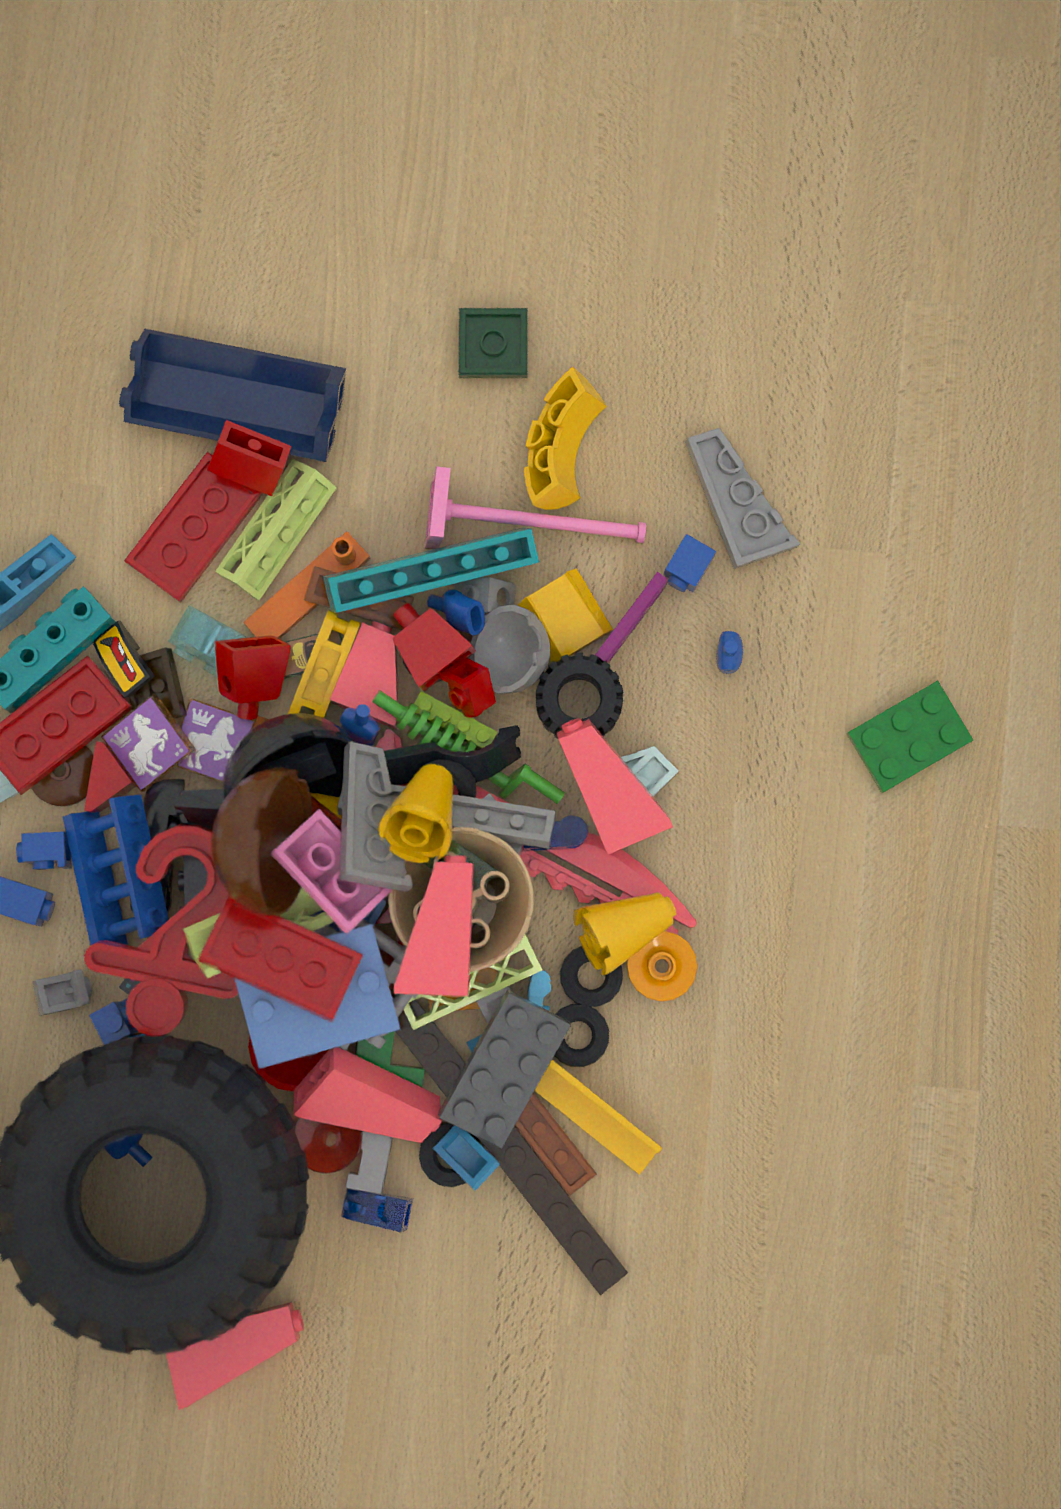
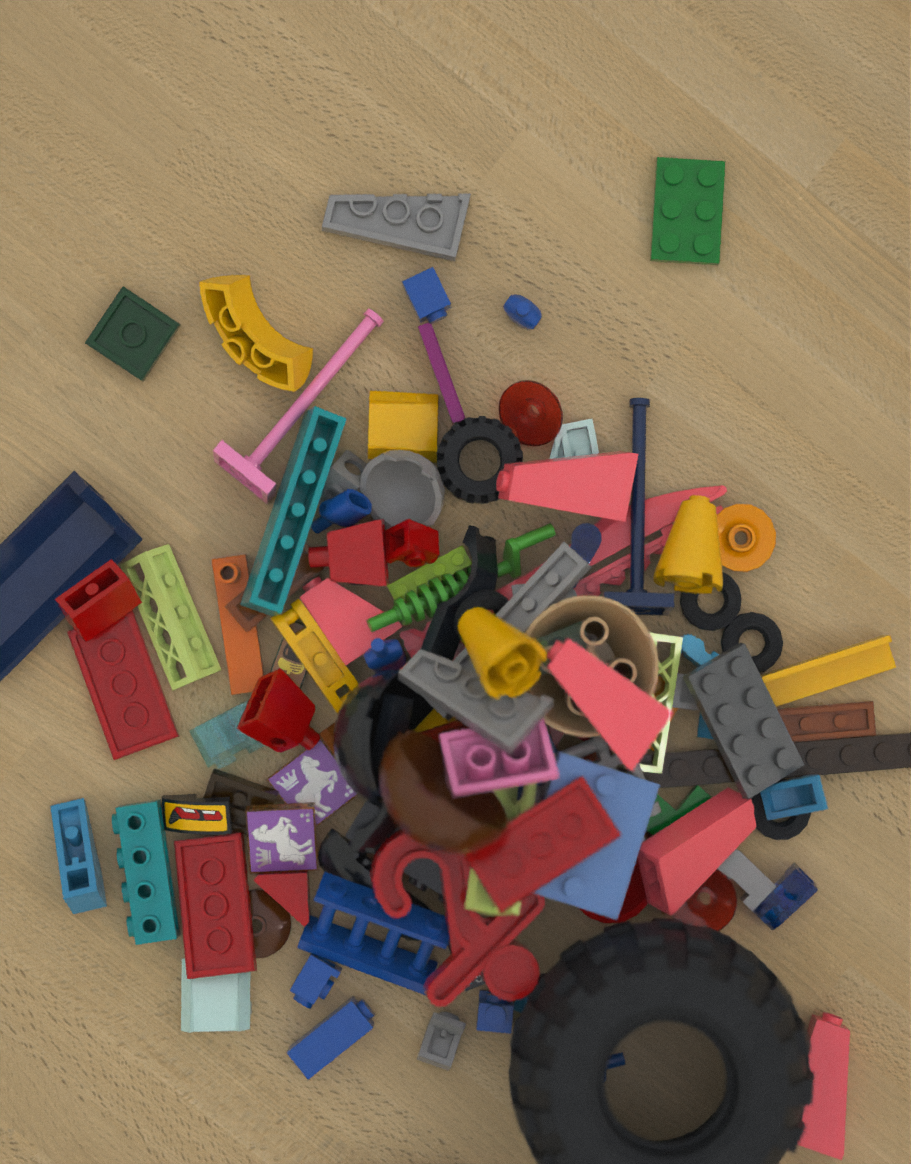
camera: 60 degrees left, 5 degrees up
(548, 909) = (637, 597): none -> dark blue tile
(638, 711) = (518, 415): none -> clear red dish

